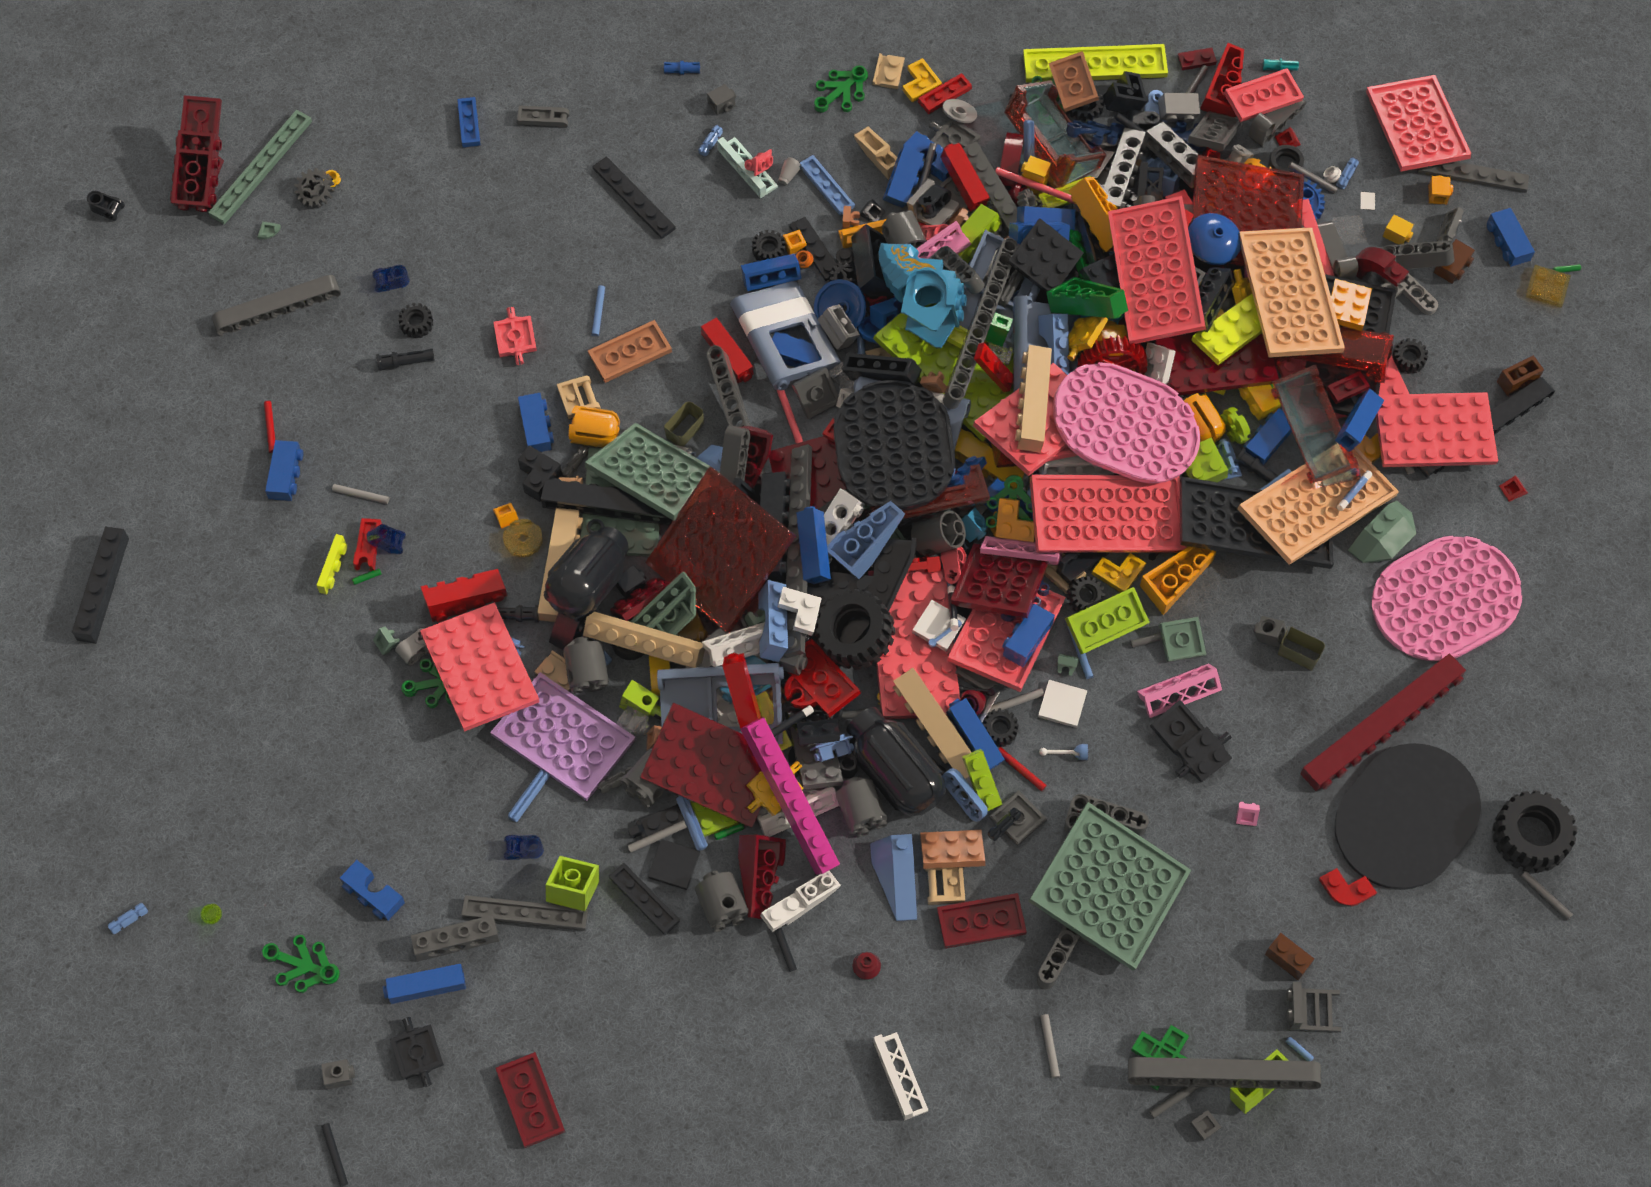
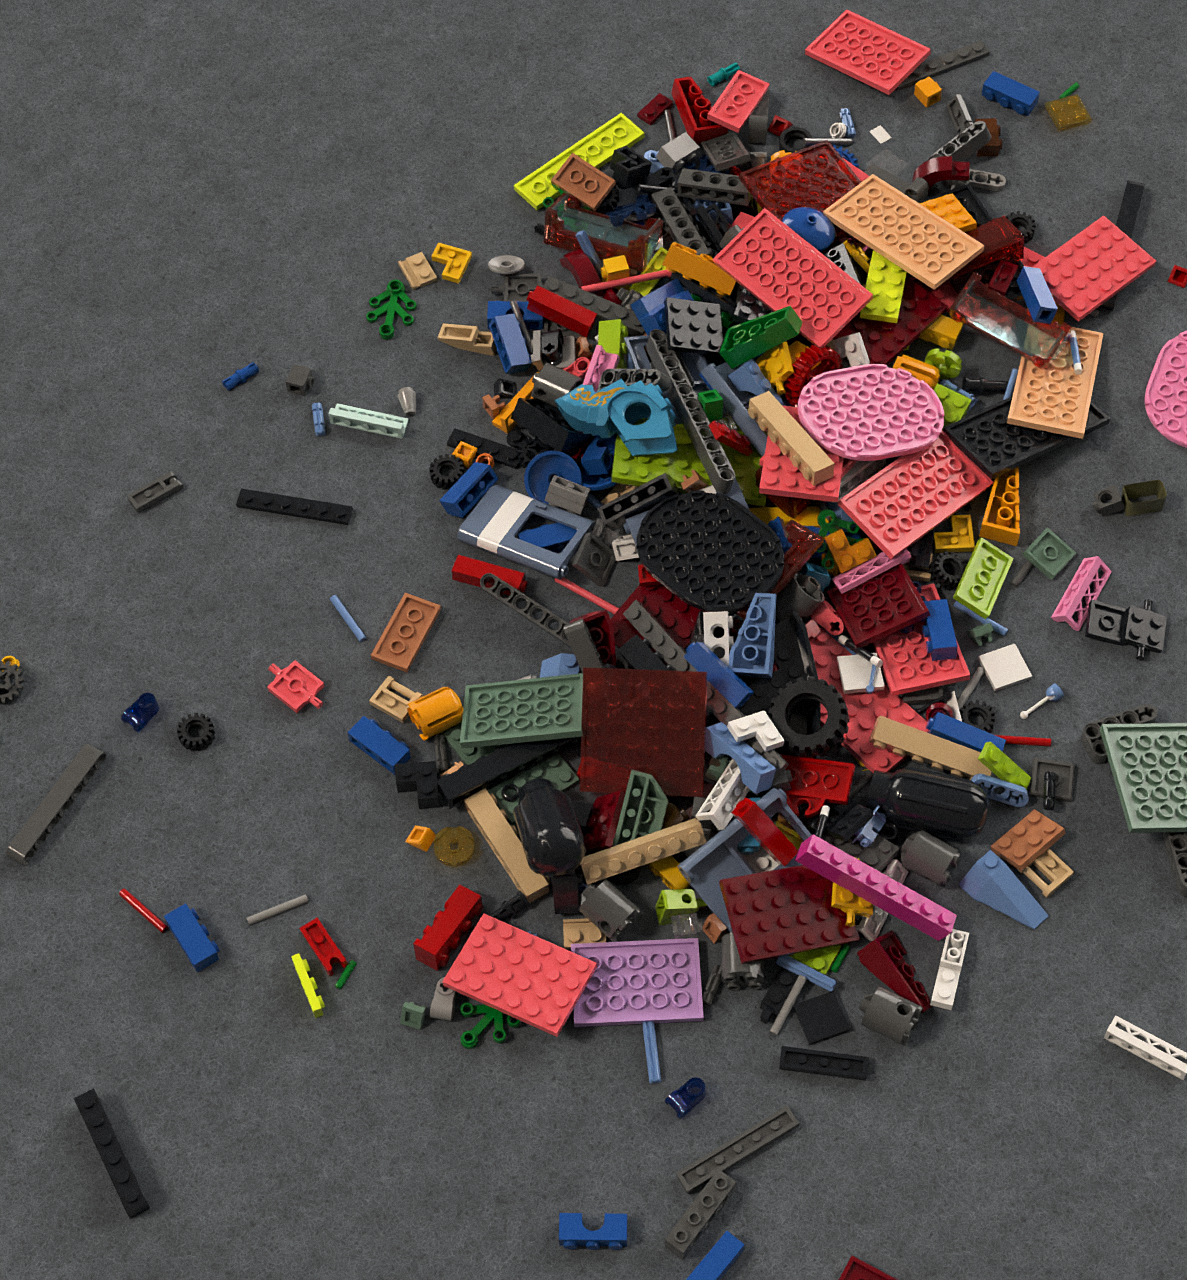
camera: 35 degrees left, 5 degrees down
(386, 538) = (338, 929): clear blue piece -> none
(395, 359) = (208, 775): black pin -> none
(469, 122) = (93, 538): blue plate -> none
(572, 883) = (758, 1093): lime brick -> none
(686, 409) = (508, 642): olive piece -> none
(760, 162) = (379, 408): coral hinge -> none
(785, 949) = (971, 1018): black bar -> none
(826, 184) = (448, 392): medium blue tile -> none
(866, 965) = (1044, 981): dark red cone -> none
(949, 90) = (479, 260): red plate -> none
(981, 920) = (1099, 879): dark red plate -> none
(1269, 437) = (973, 354): blue brick -> none
(1385, 535) = (1123, 373): sand green wedge -> none
(1398, 230) = (925, 140): yellow brick -> none
(1520, 375) = (1111, 189): reddish brown brick -> none

